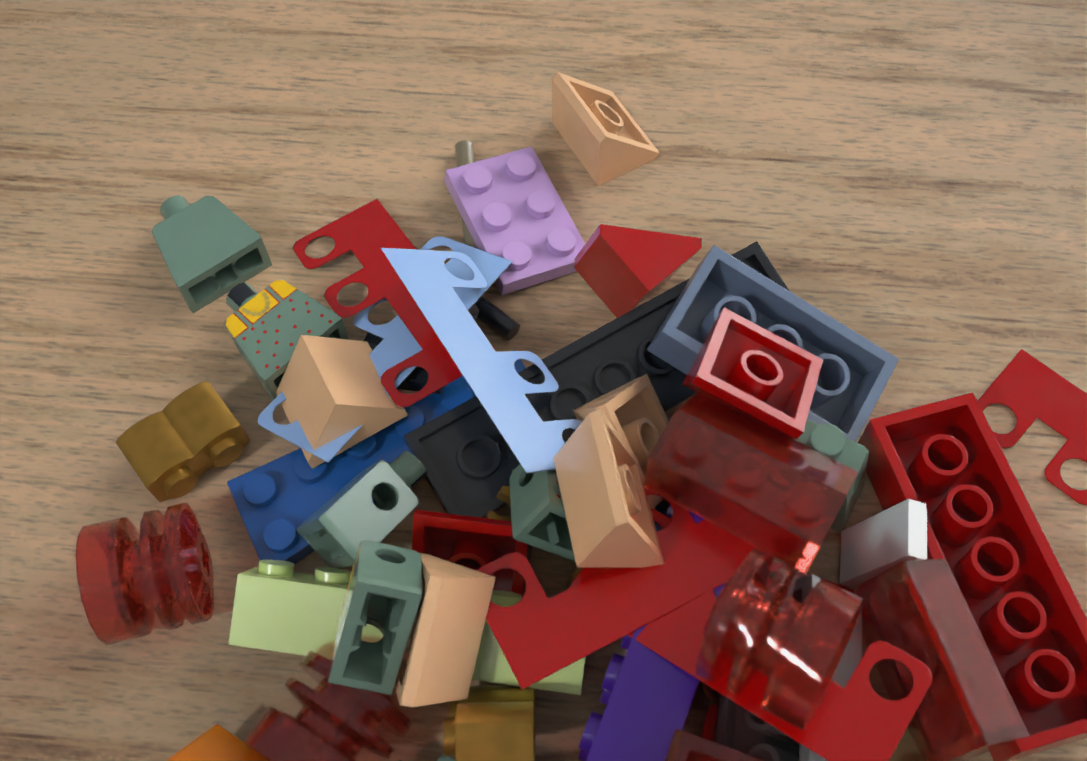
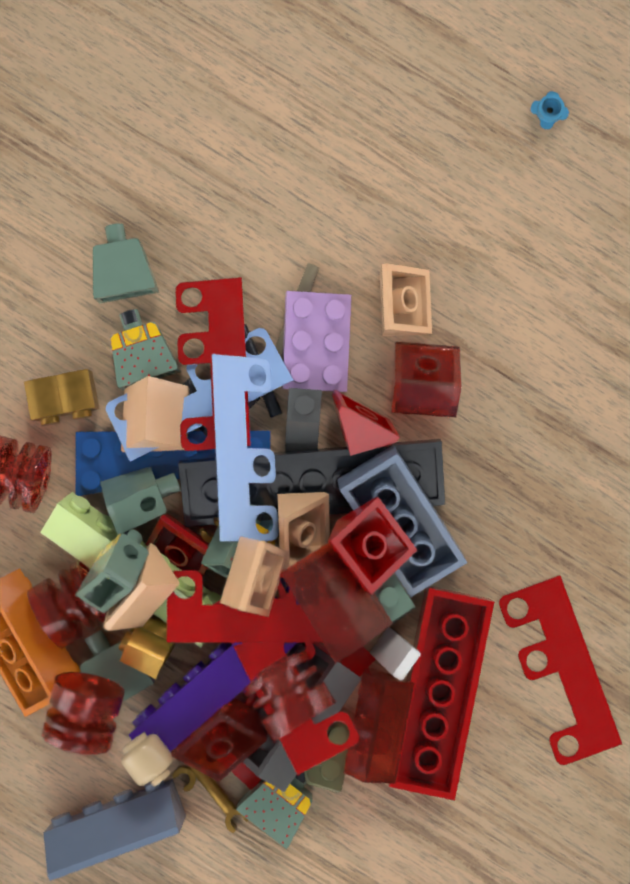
camera: 25 degrees right, 25 degrees up
(550, 302) = (303, 419): none -> dark grey slope
(691, 195) = (426, 379): none -> clear red slope

